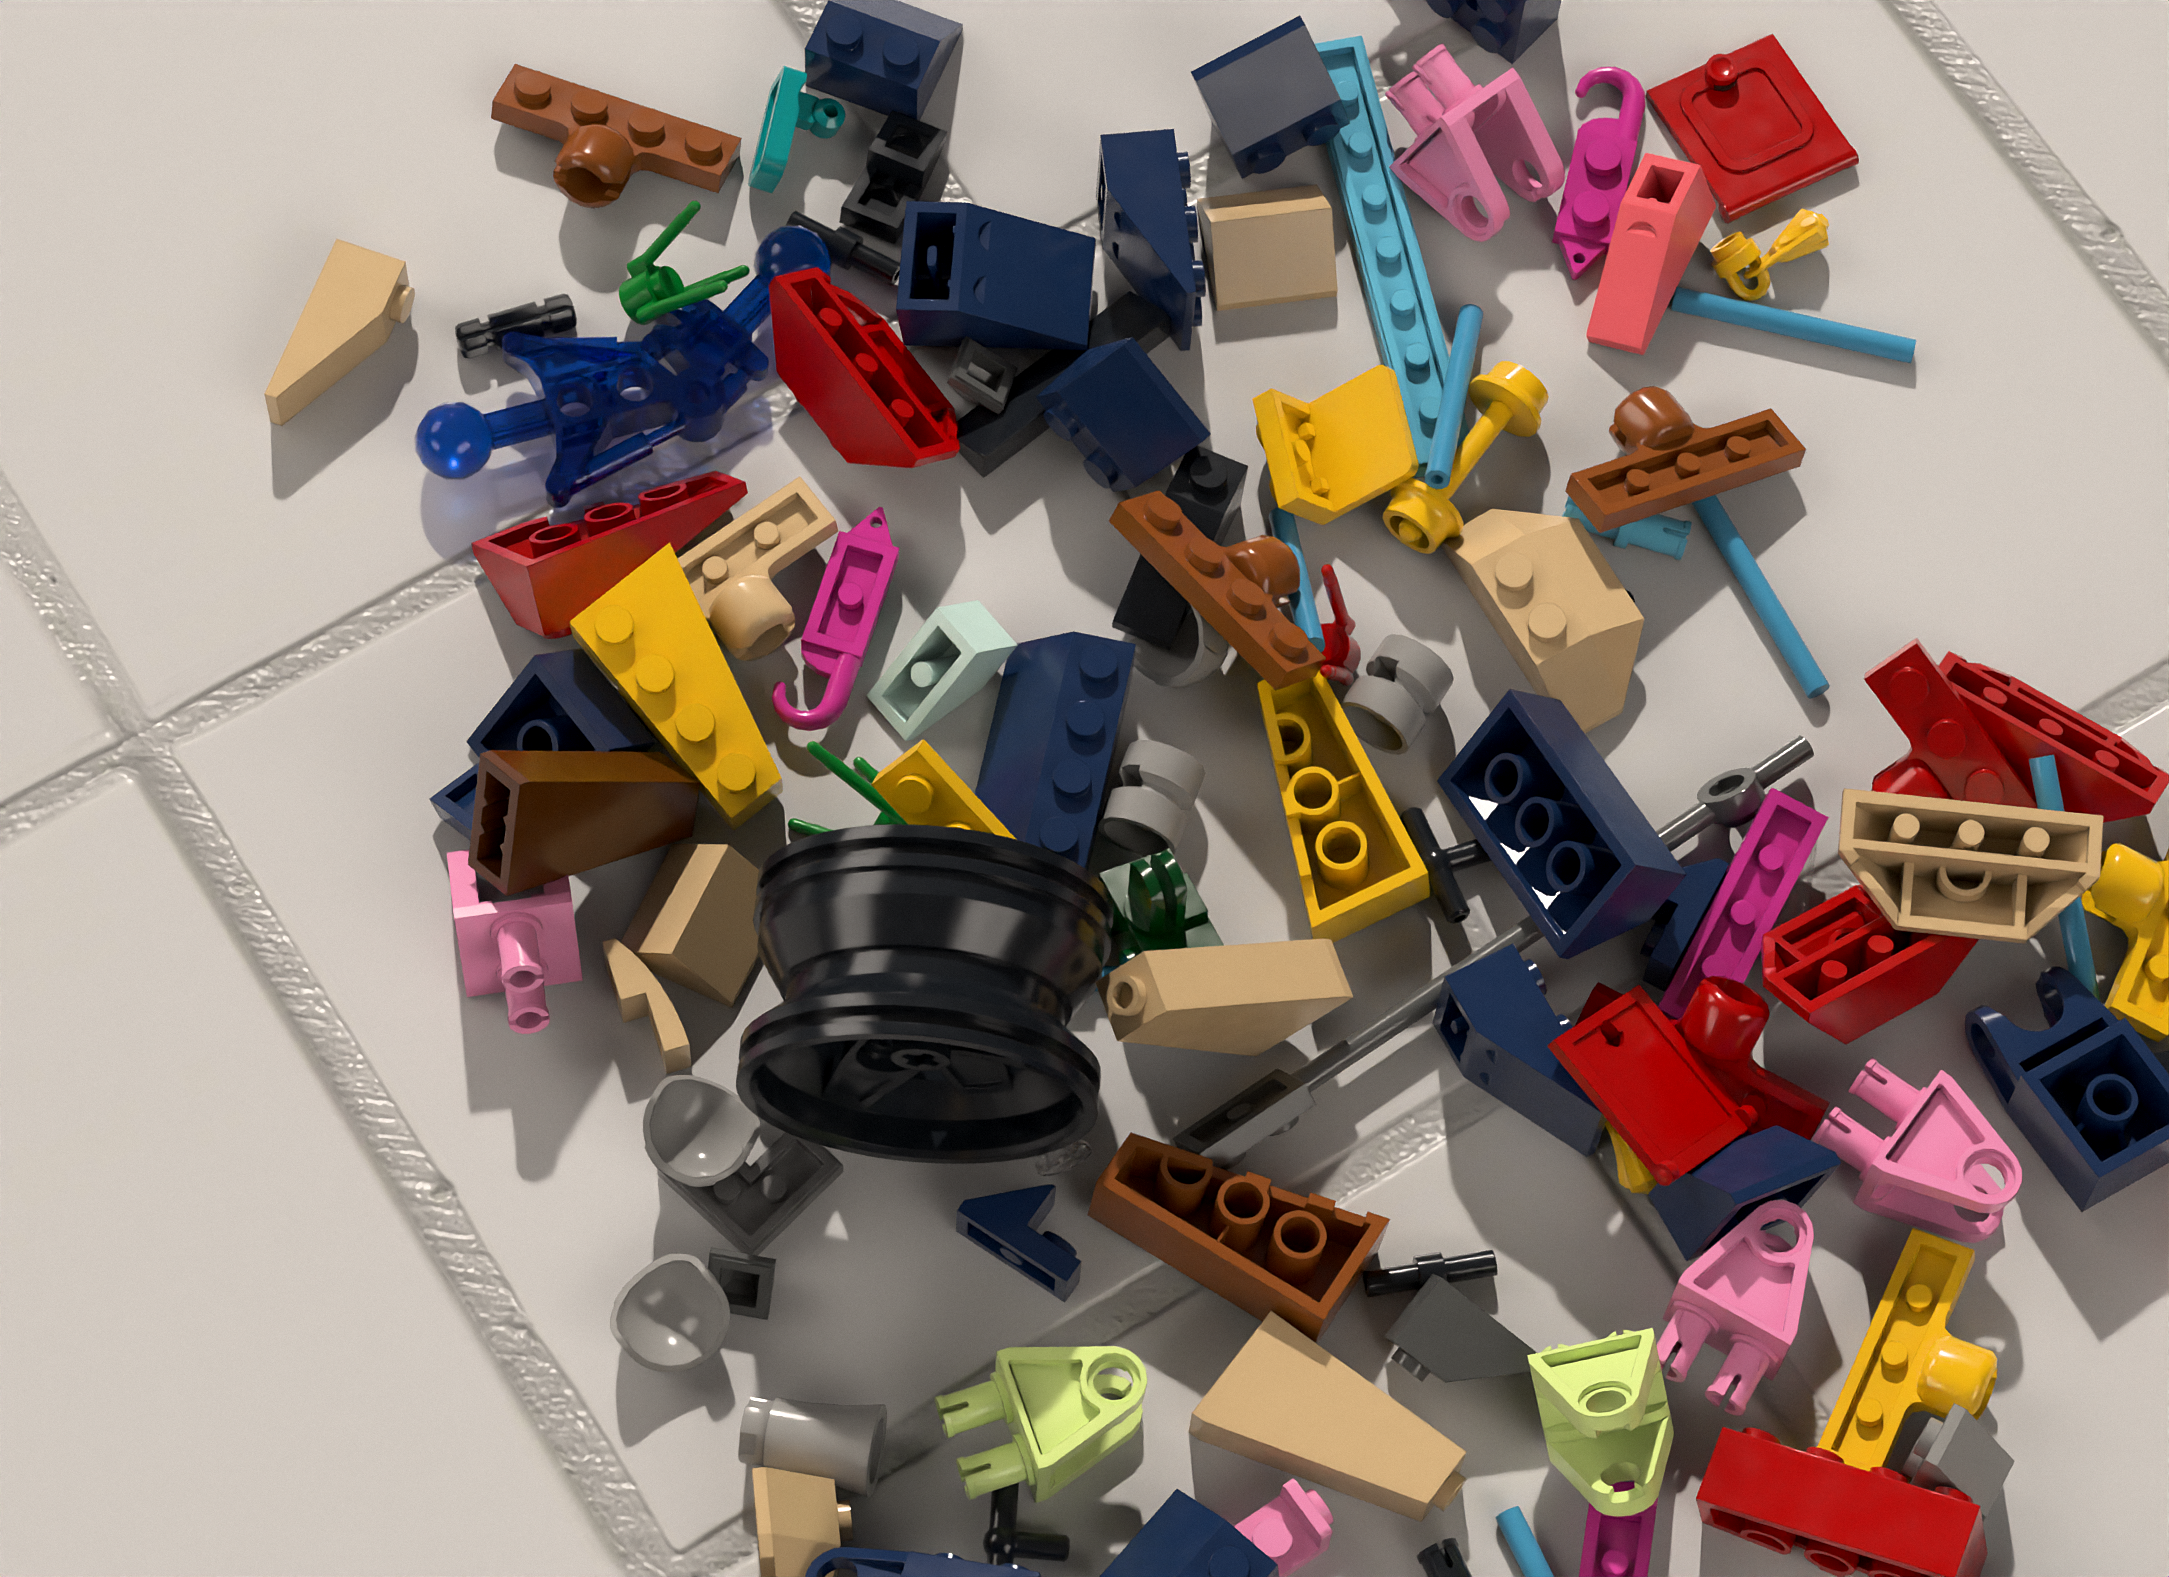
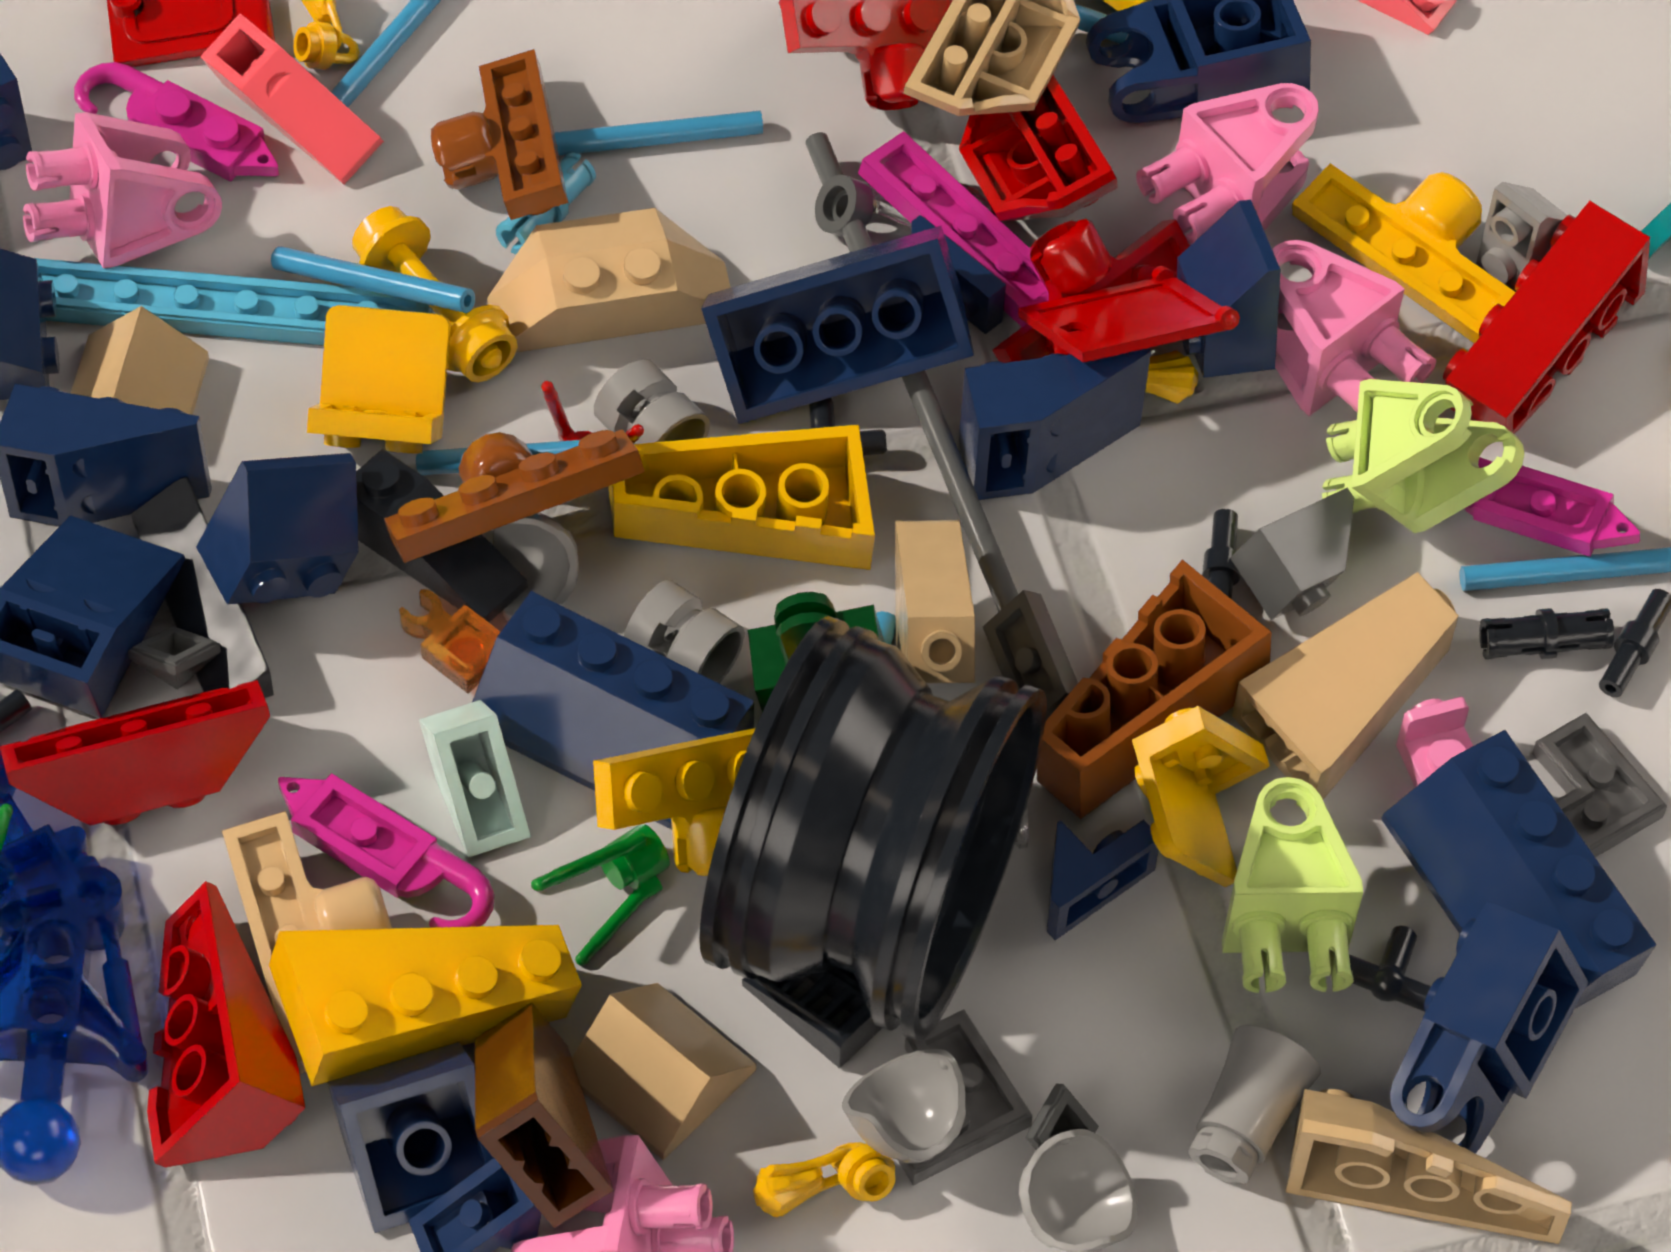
camera: 70 degrees left, 10 degrees down
(609, 1062) = (859, 1168): none -> yellow piece
(641, 996) = (714, 1137): tan slope -> none
(1085, 605) = (454, 643): none -> clear orange plate
(1127, 1296) = (1180, 775): none -> yellow bracket

